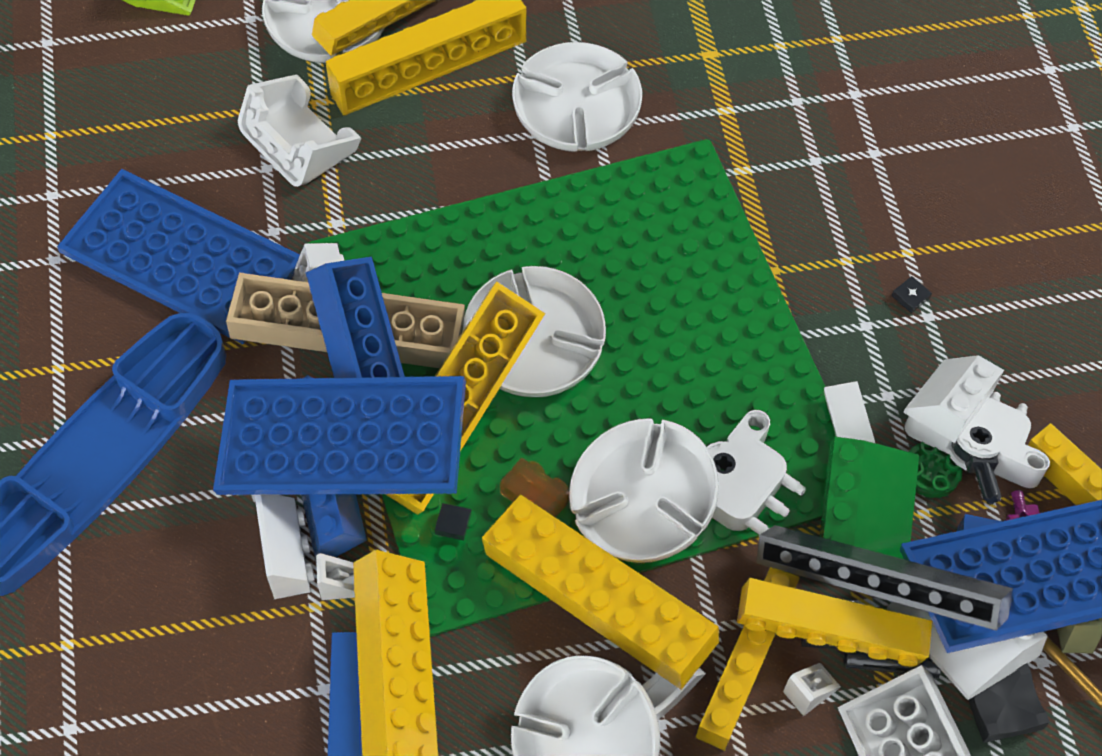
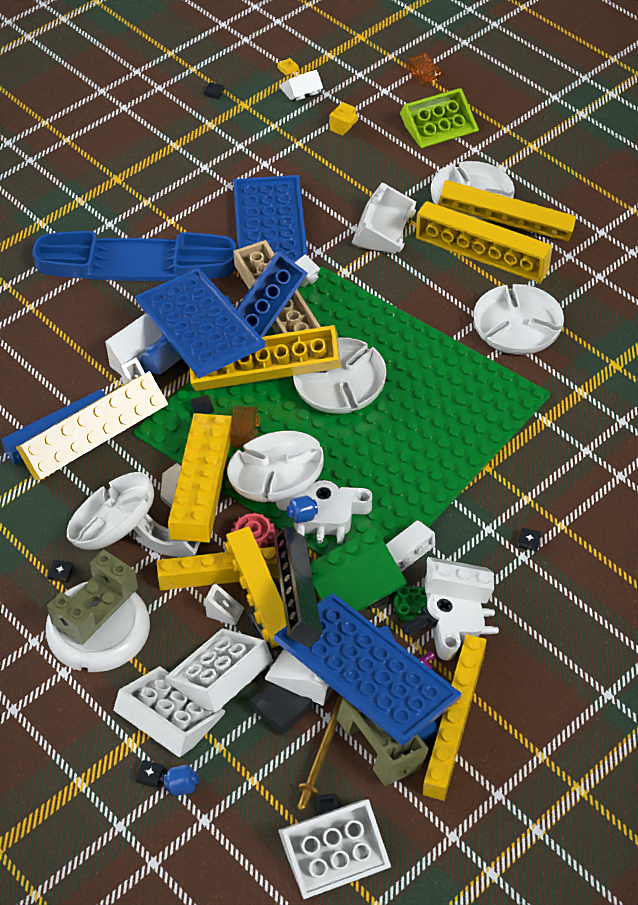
camera: 60 degrees right, 10 degrees down
(66, 58) = (342, 118): none -> yellow brick
(549, 633) = (169, 484): none -> white tile
(711, 597) = (260, 527): none -> coral gear
(746, 501) = (302, 509): none -> blue head

